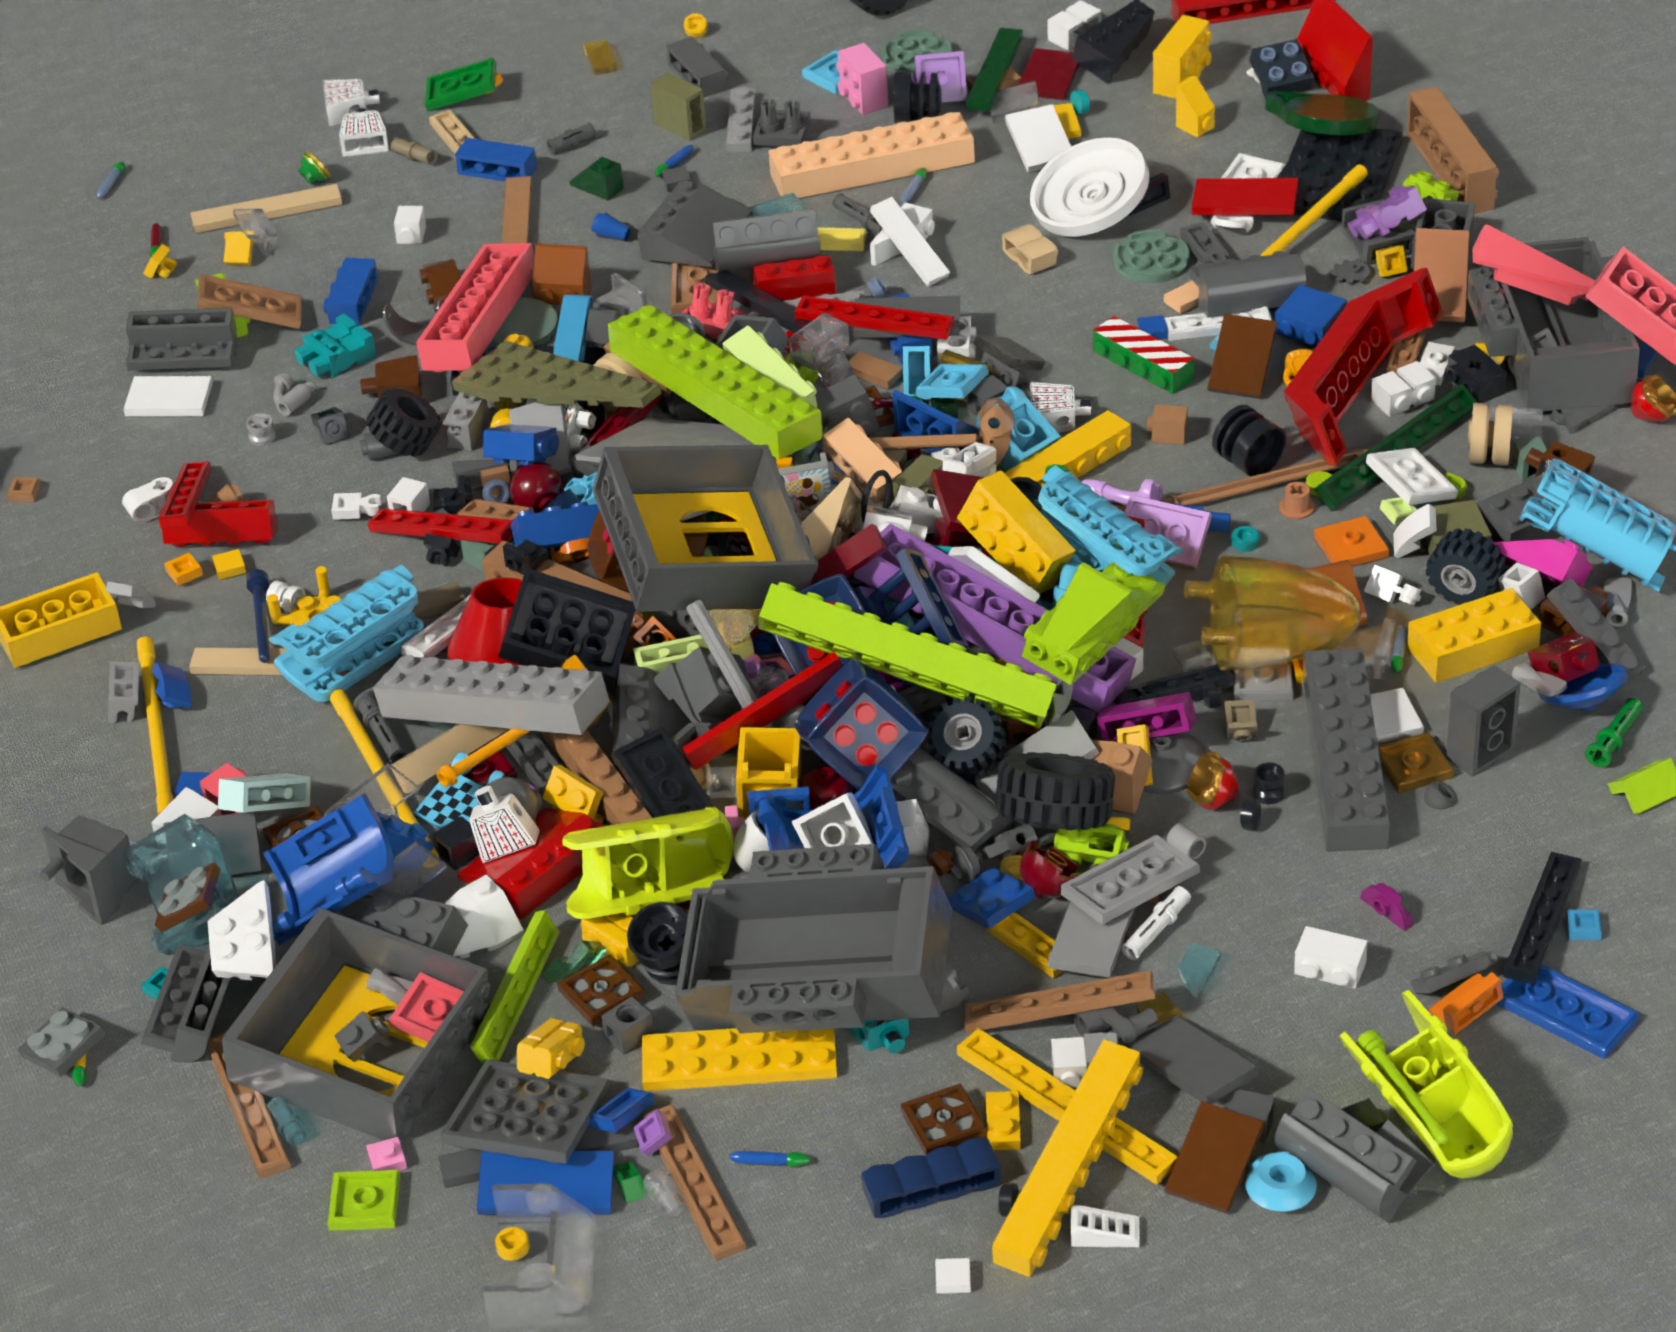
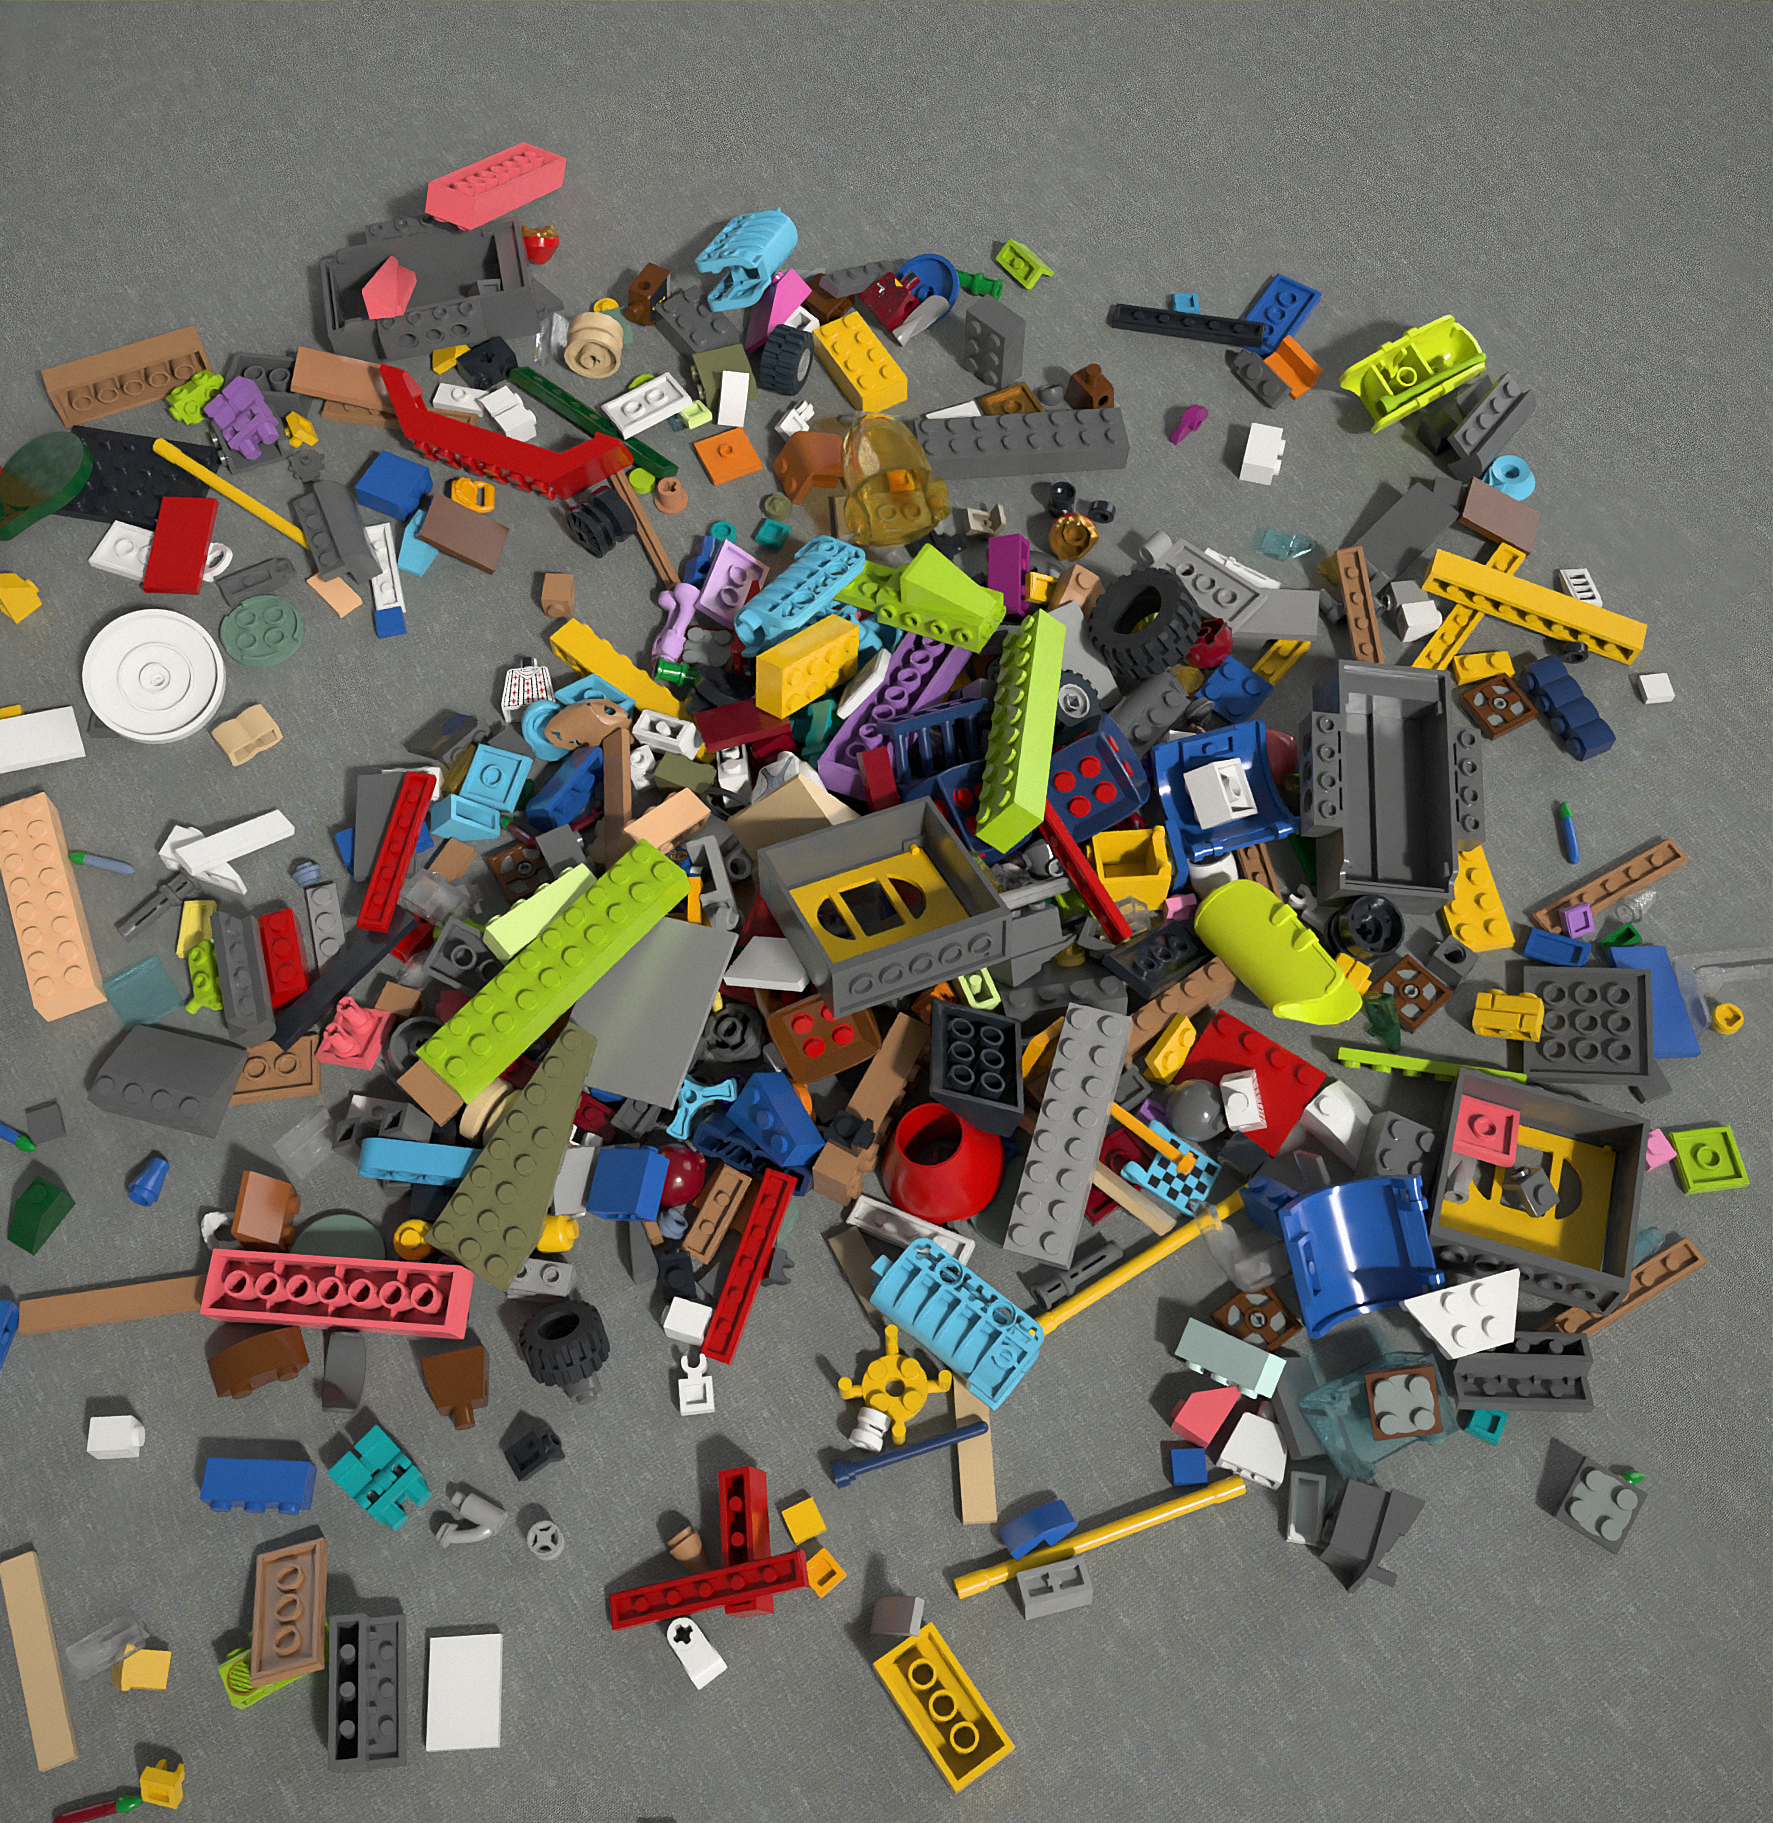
camera: 100 degrees left, 20 degrees up
(1143, 354) = (443, 623): brick -> none
(1419, 812) = (1089, 389): none -> reddish brown torso

